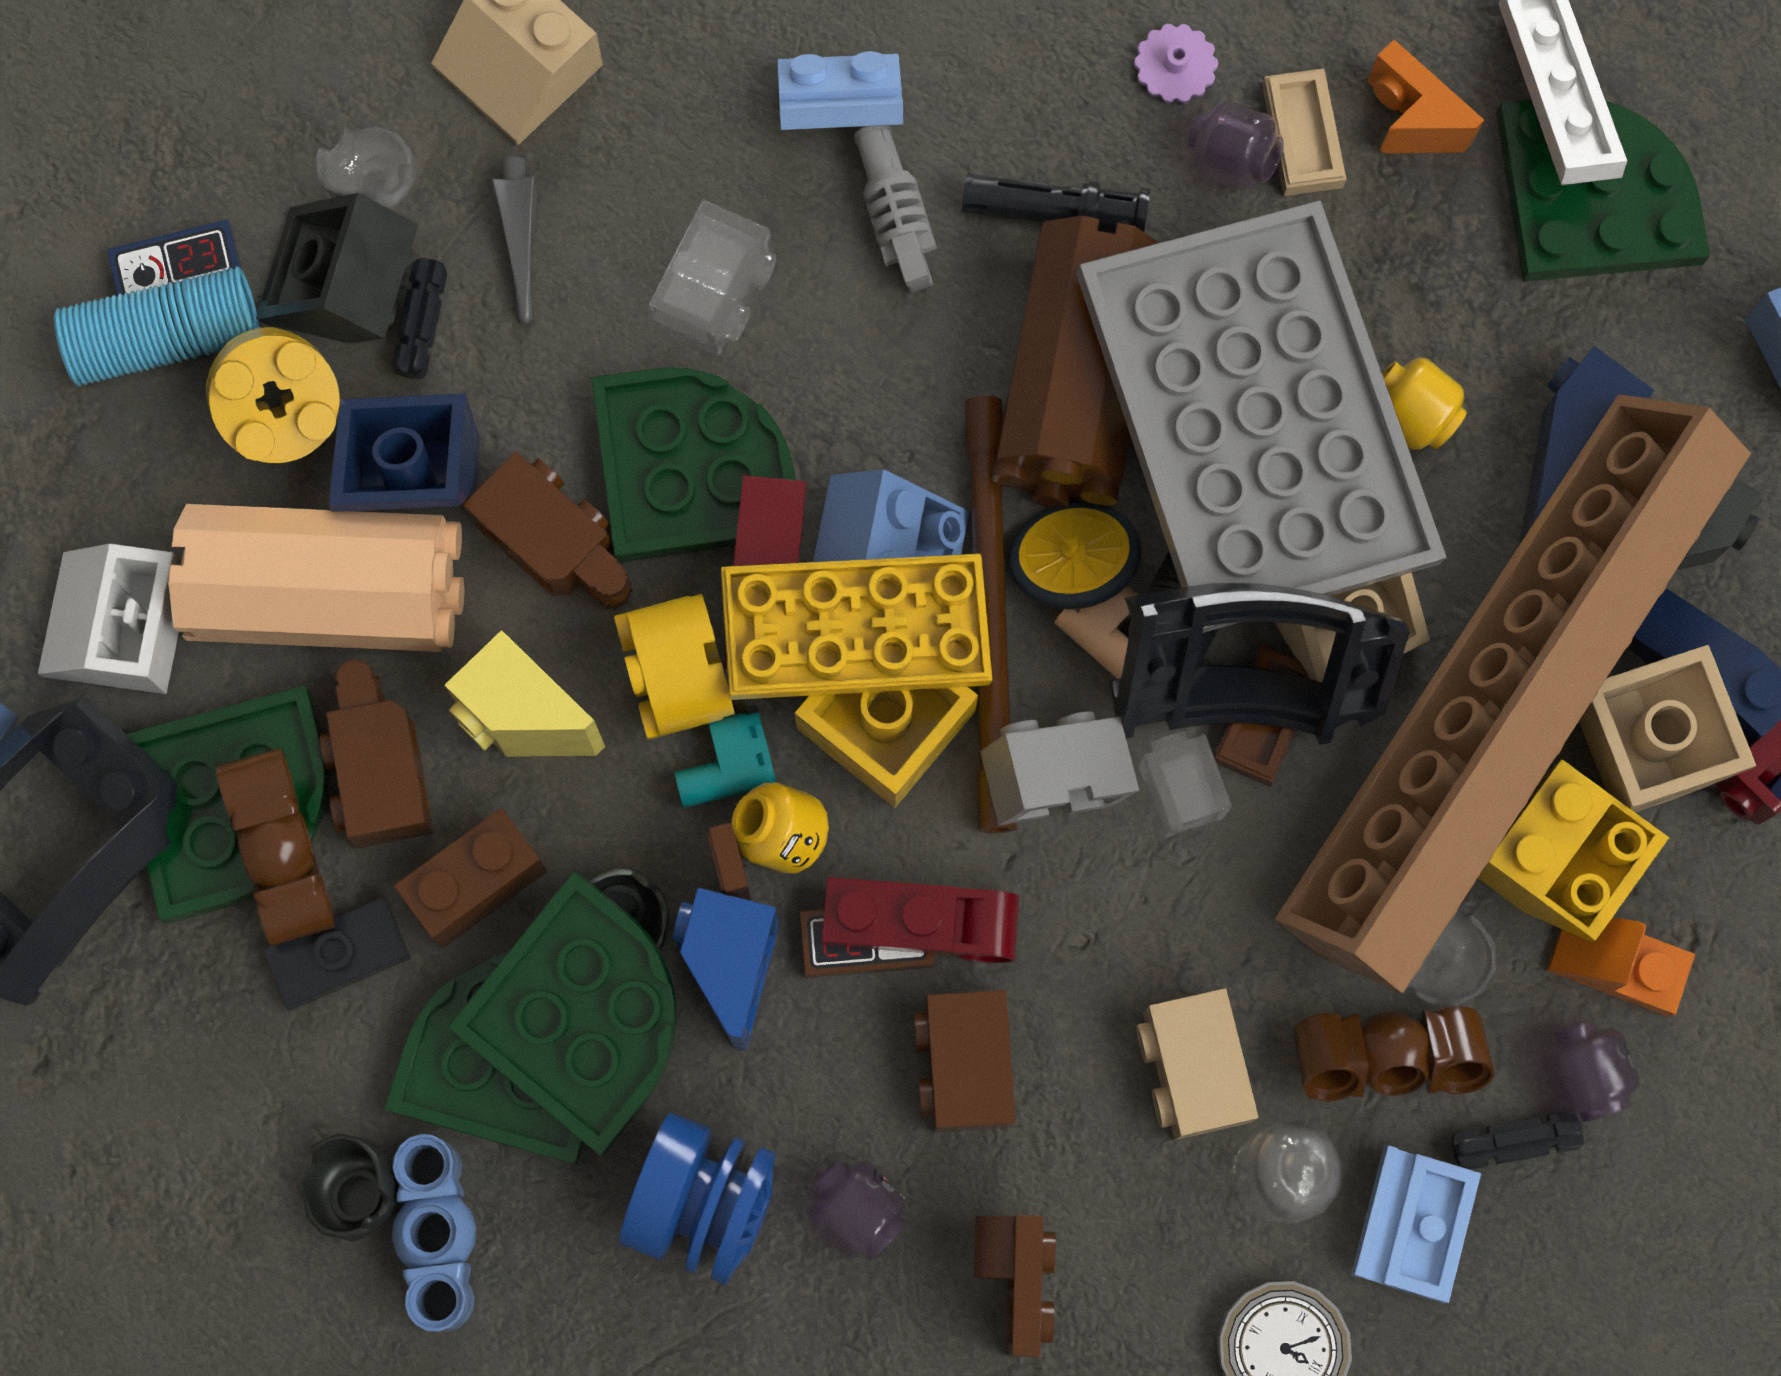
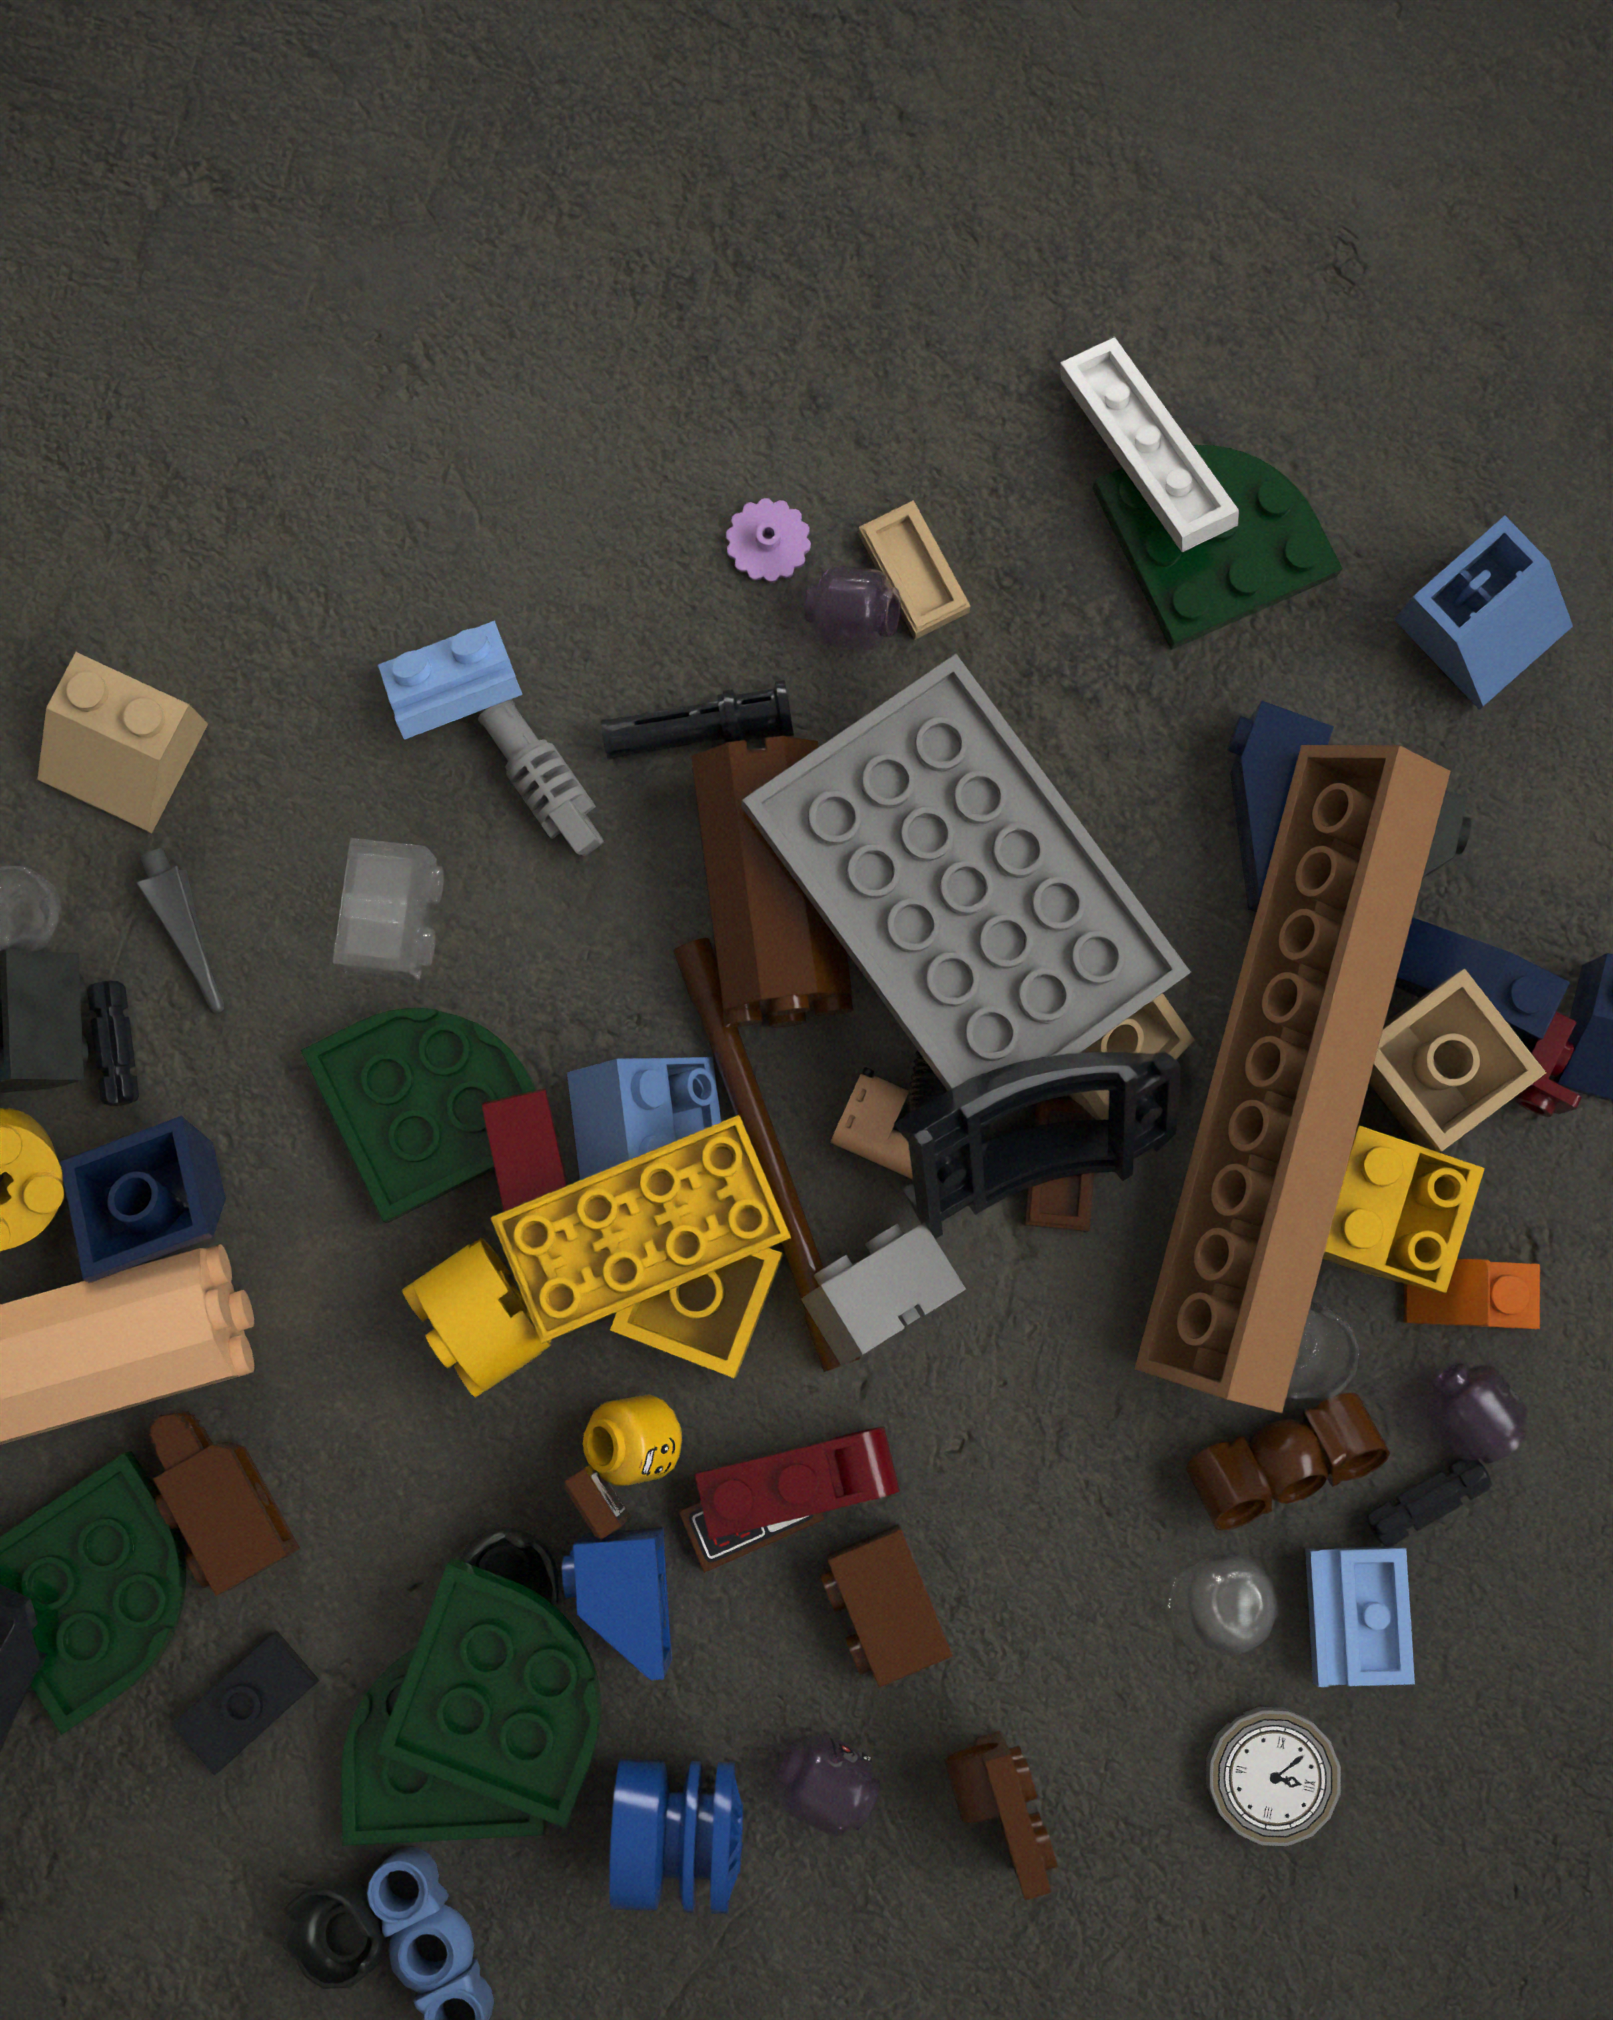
camera: 15 degrees left, 5 degrees up
(275, 846) = (147, 1631): reddish brown piece -> none
(471, 878) = (350, 1590): reddish brown brick -> none
(518, 707) = (336, 1406): light yellow slope -> none
(547, 532) = (308, 1220): reddish brown hinge -> none
(740, 764) = (574, 1387): teal piece -> none
(1075, 555) = (829, 1072): yellow wheel -> none
(1184, 783) = (1005, 1262): clear brick -> none
(1197, 1065) = (1107, 1534): tan brick -> none
(1424, 402) = (1114, 808): yellow head -> none
(1432, 113) = (1034, 513): orange slope -> none

